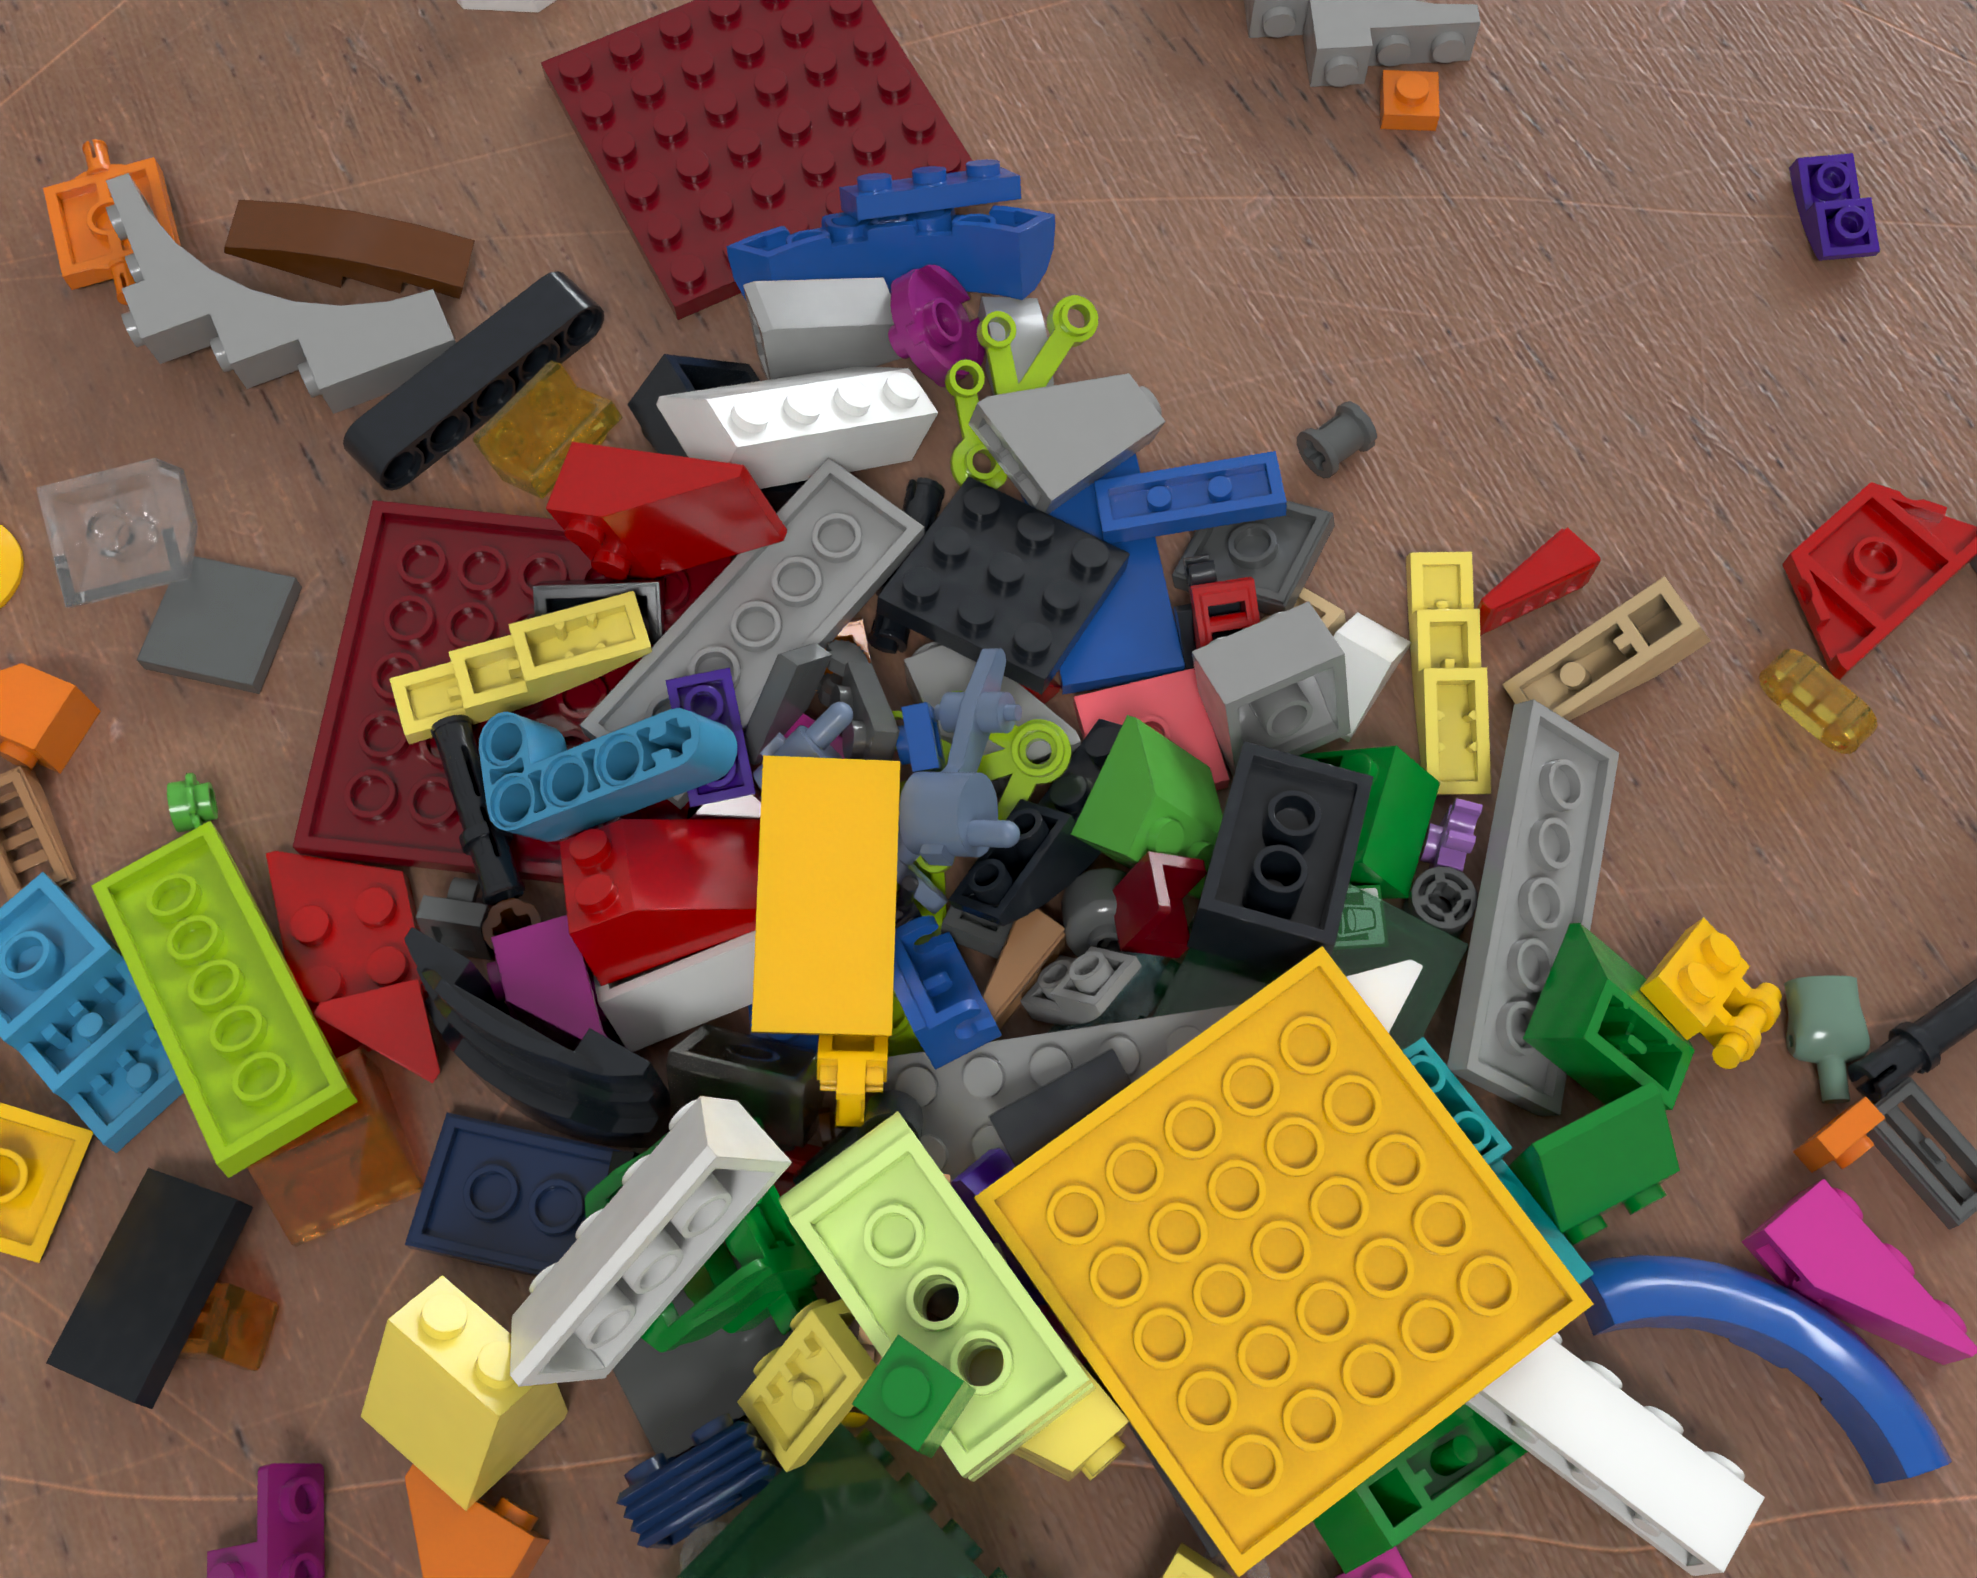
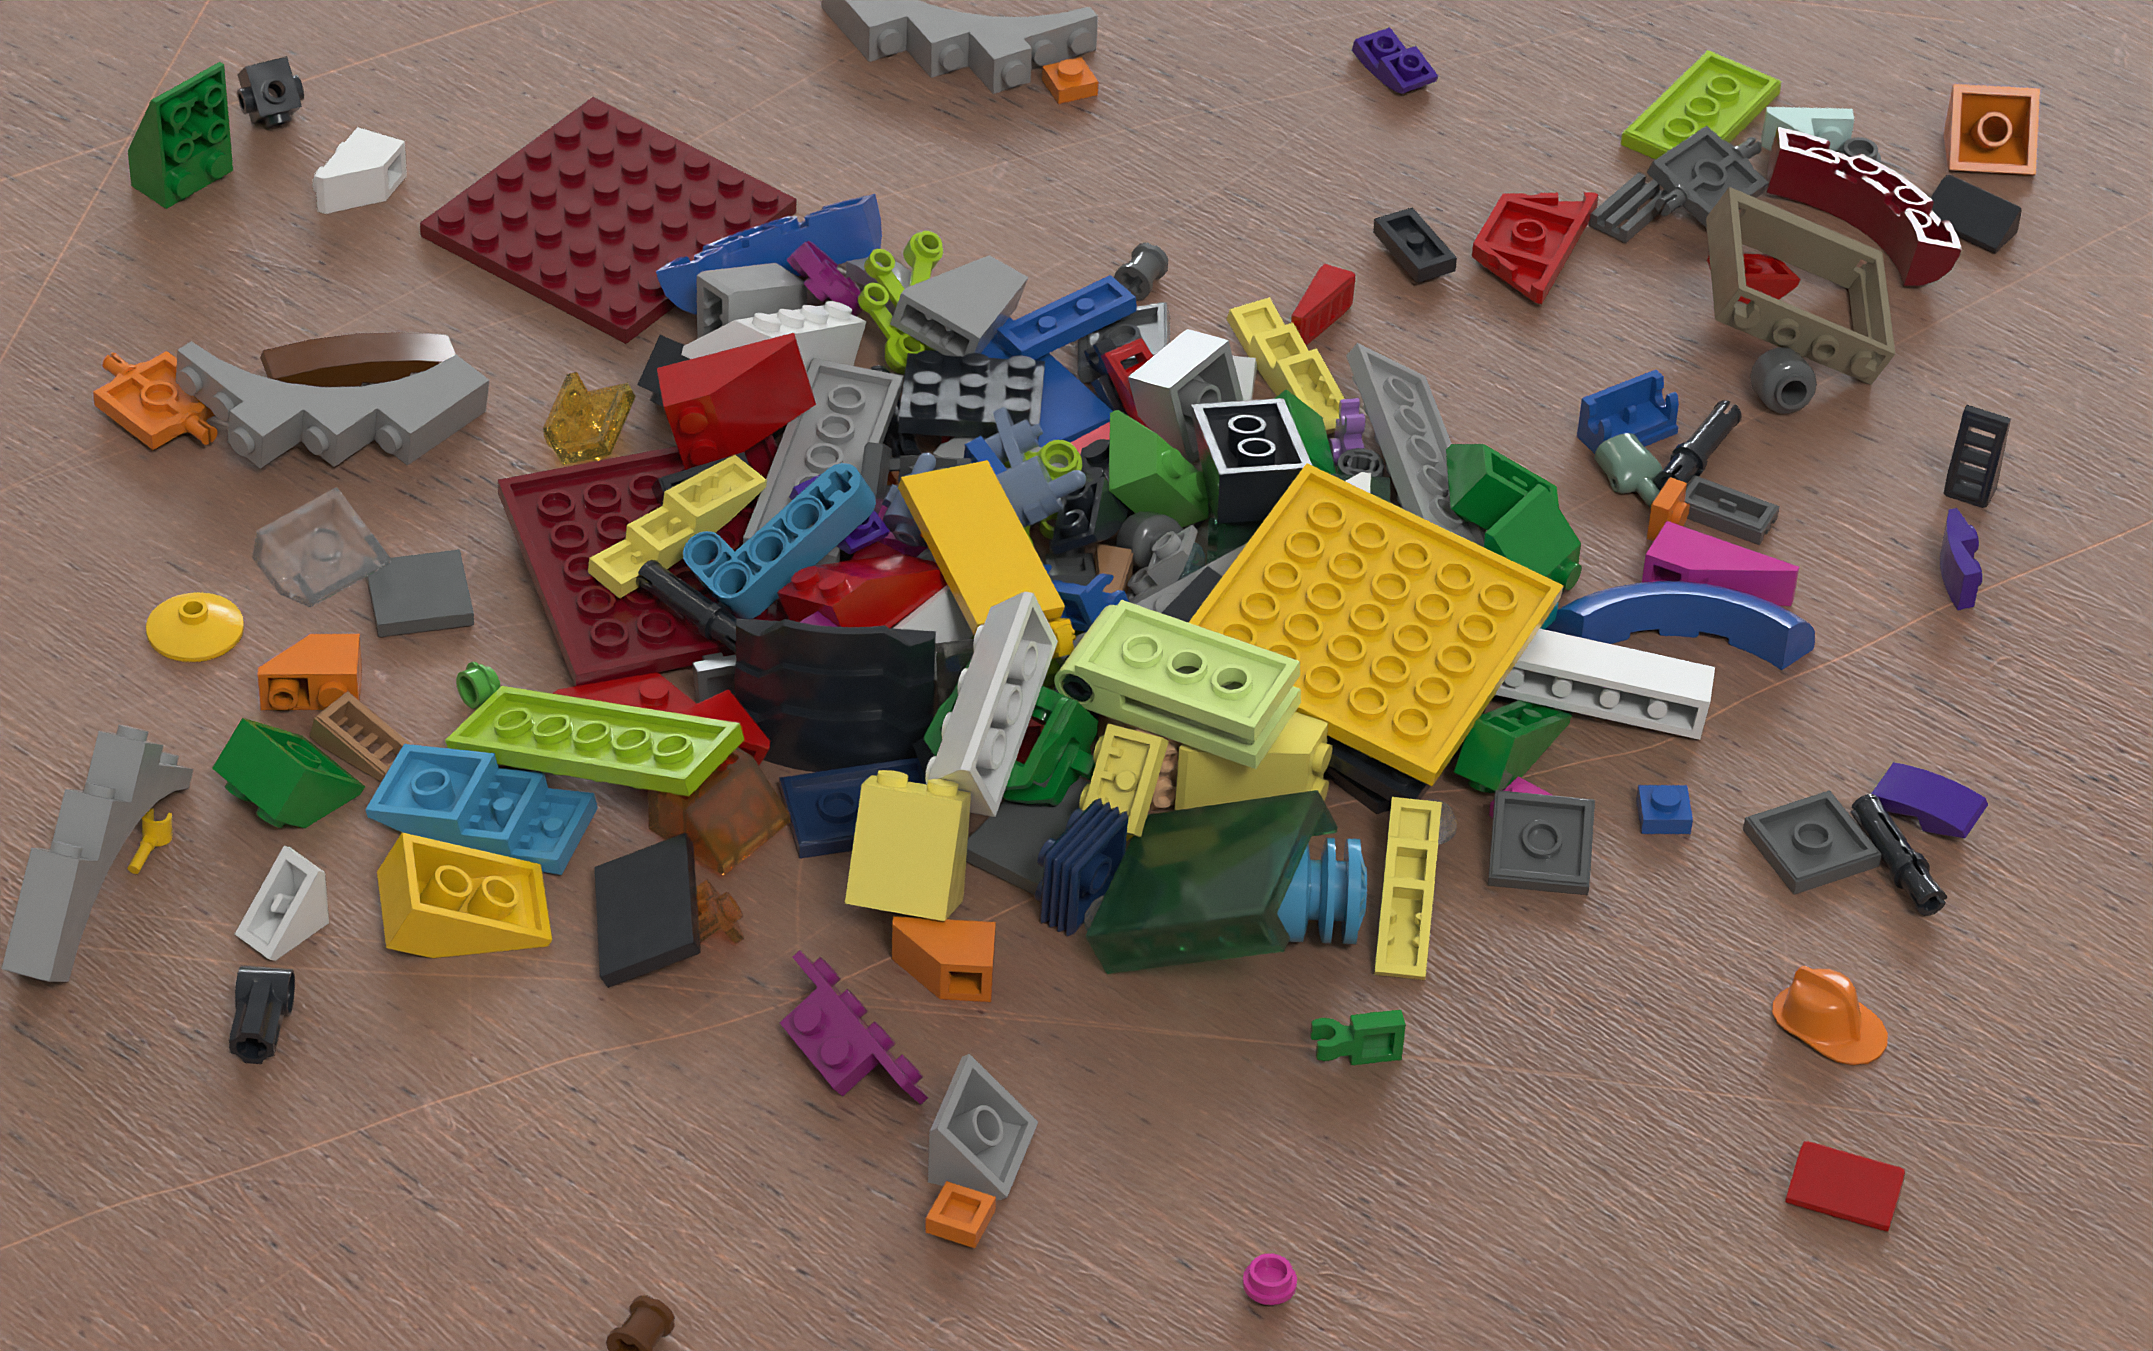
camera: 30 degrees left, 25 degrees down
(472, 380) = (509, 409): black beam -> none
(914, 1397) = (1208, 686): green brick -> none
(929, 190) = (771, 208): blue plate -> none
(1151, 905) = (1180, 501): dark red panel -> none
(1612, 654) = (1398, 317): tan slope -> none
(1704, 992) = (1545, 459): yellow plate -> none
(1713, 522) = (1414, 245): none -> black plate
(1818, 701) = (1533, 313): clear yellow beam -> none
(1864, 936) = (1629, 408): none -> blue hinge

